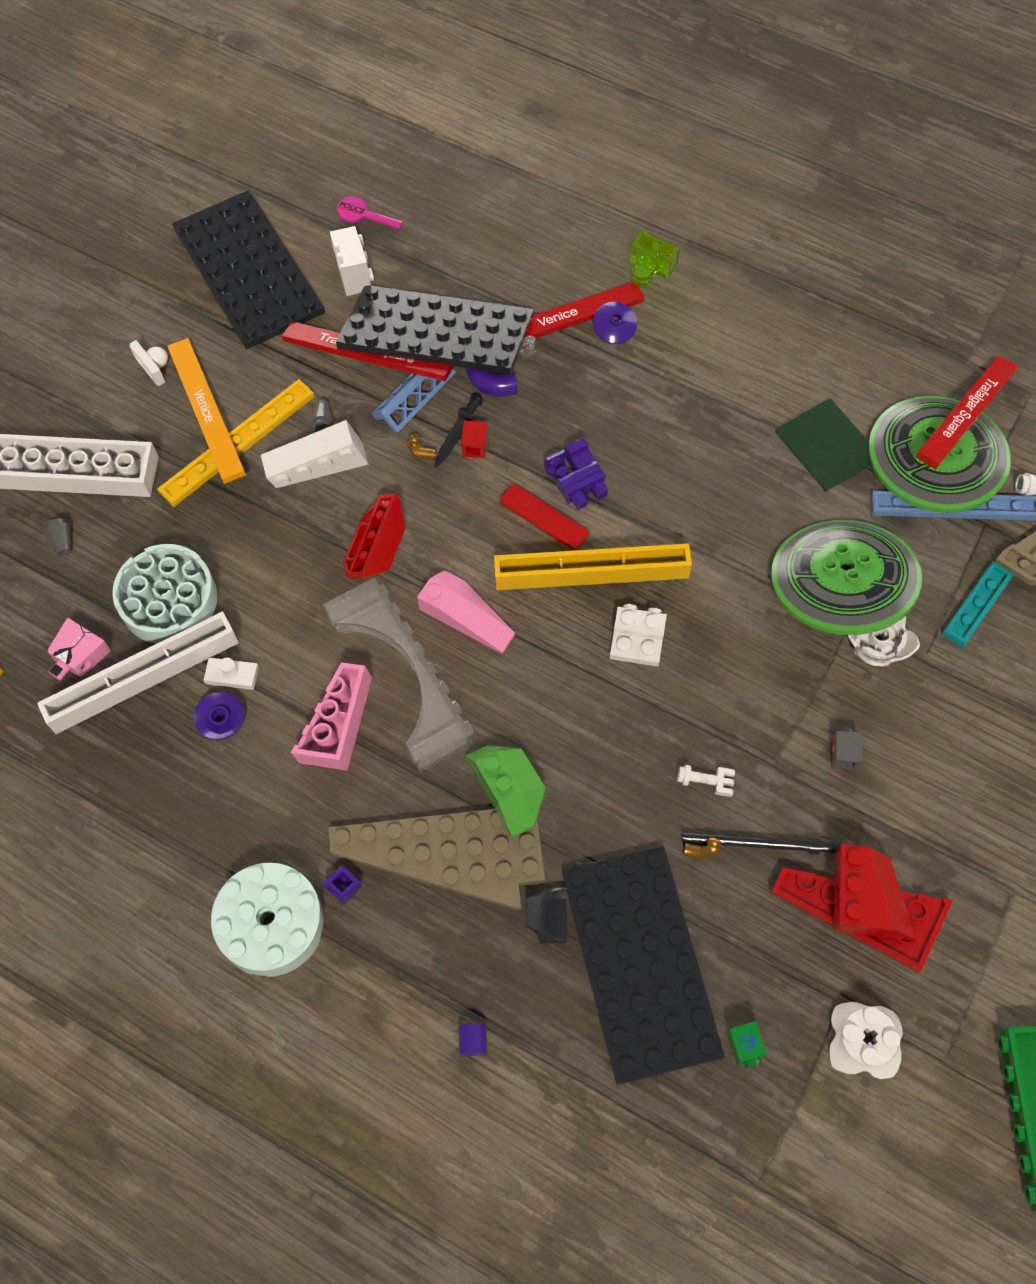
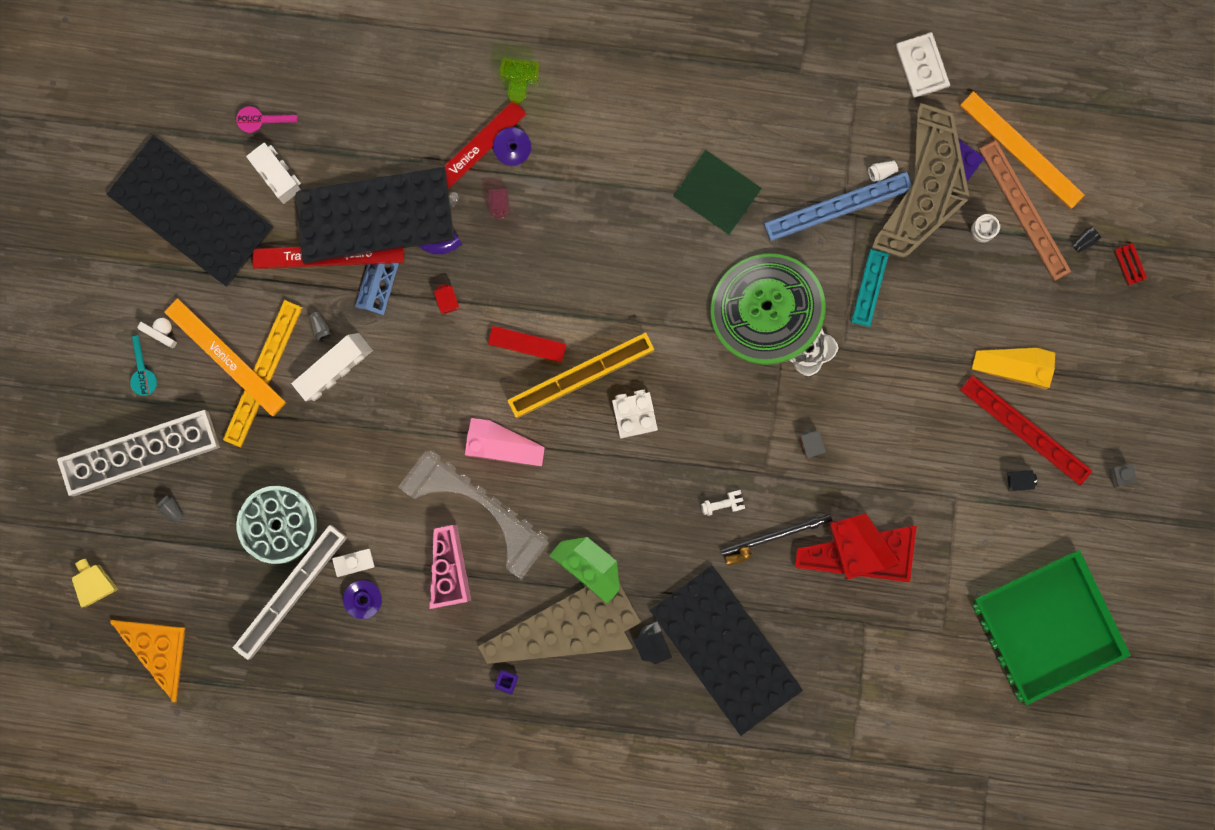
camera: 25 degrees left, 20 degrees up
(75, 650) = (232, 593): bright pink torso -> none
(109, 402) = (142, 381): none -> teal piece
(247, 901) = (447, 728): light aqua brick -> none
(376, 538) = (410, 419): red wedge -> none
(418, 450) = (407, 325): pearl gold arm -> none
(456, 432) = (429, 293): black sword -> none
(472, 1040) = (637, 747): dark purple brick -> none
(576, 366) = (498, 203): none -> clear pink brick
(584, 478) = (544, 300): dark purple hips -> none
(746, 1045) = (814, 677): green brick -> none
(849, 1051) = (875, 634): white brick -> none
(966, 412) = (814, 129): red tile -> none
(966, 476) = (803, 195): dish -> none

